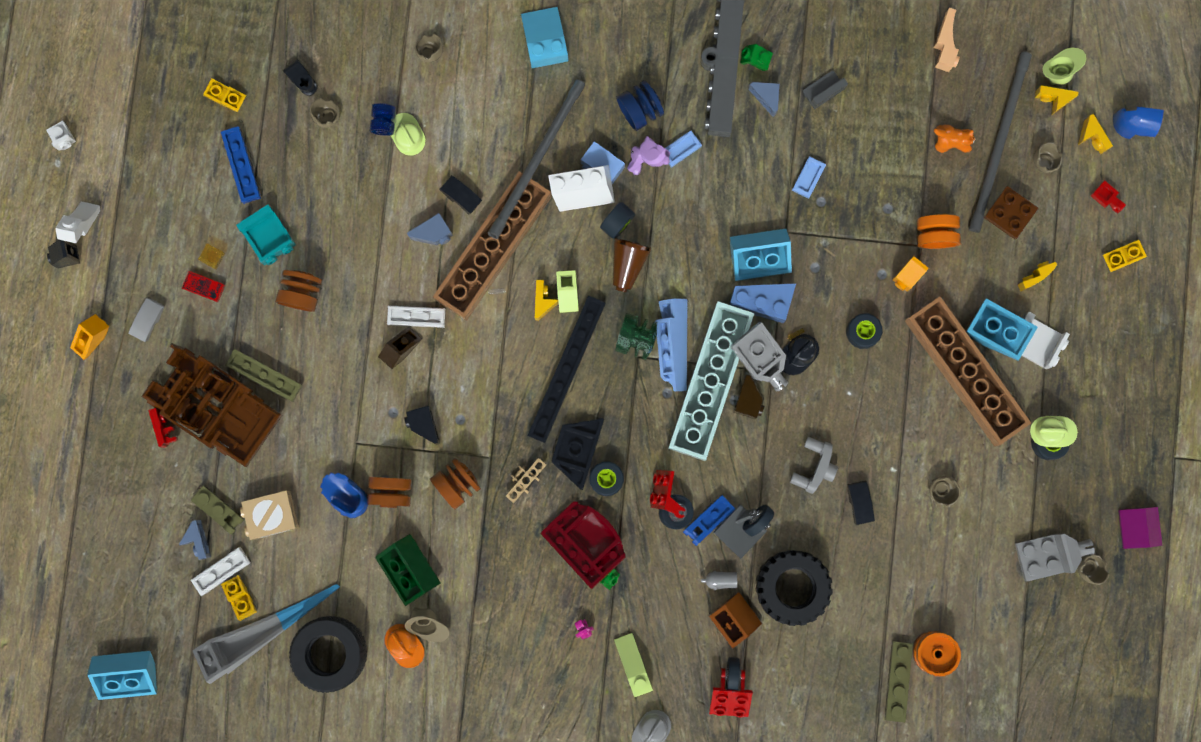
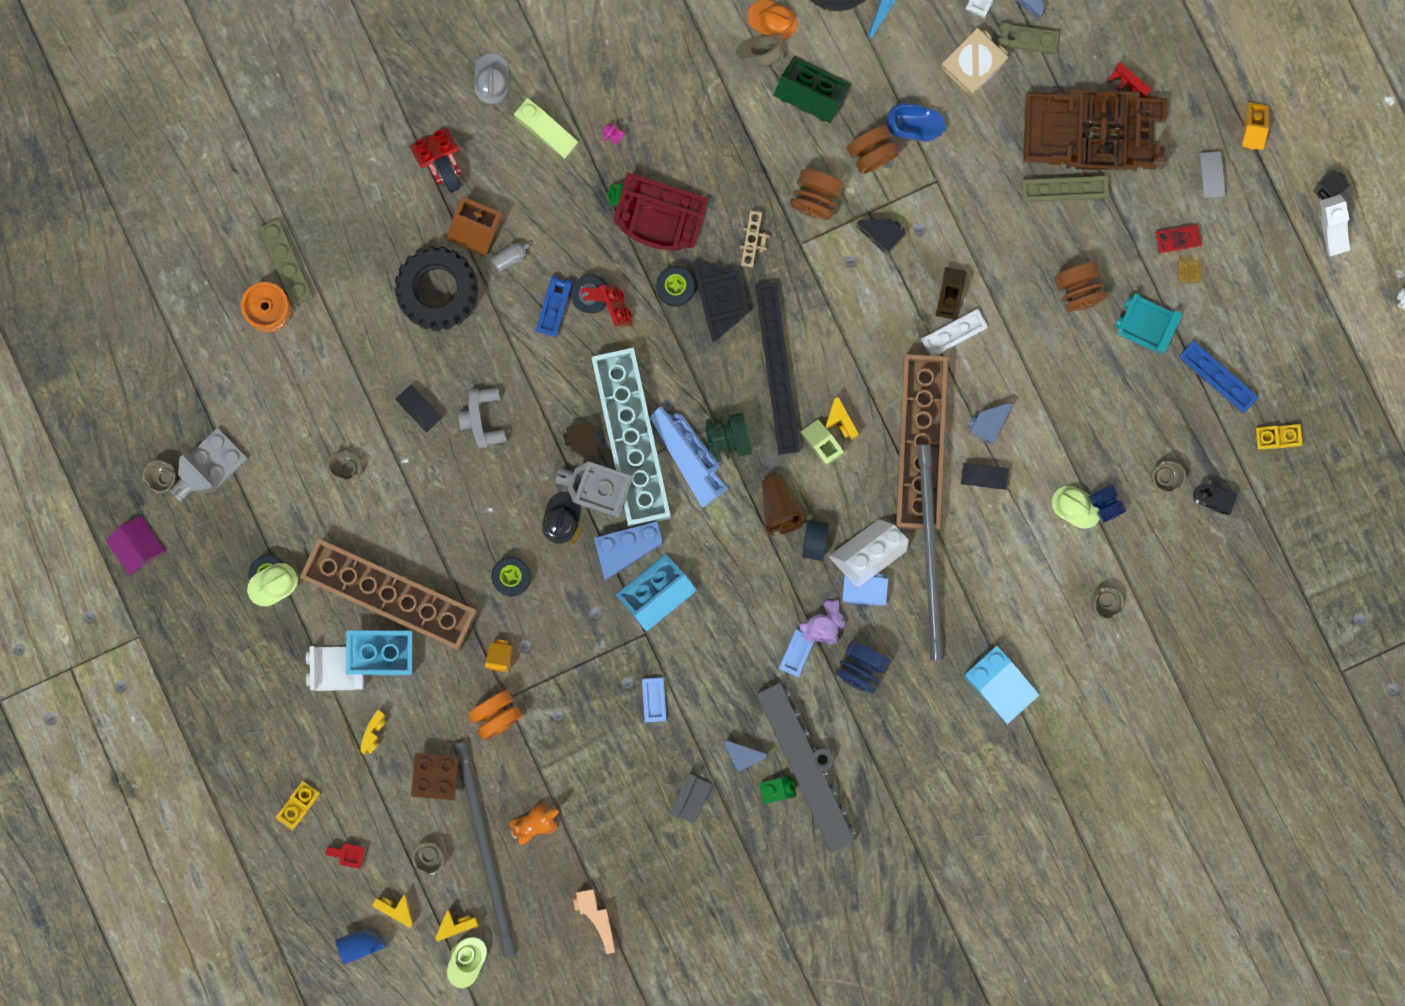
camera: 145 degrees right, 0 degrees up
(744, 528) = (516, 316): dark grey plate -> none

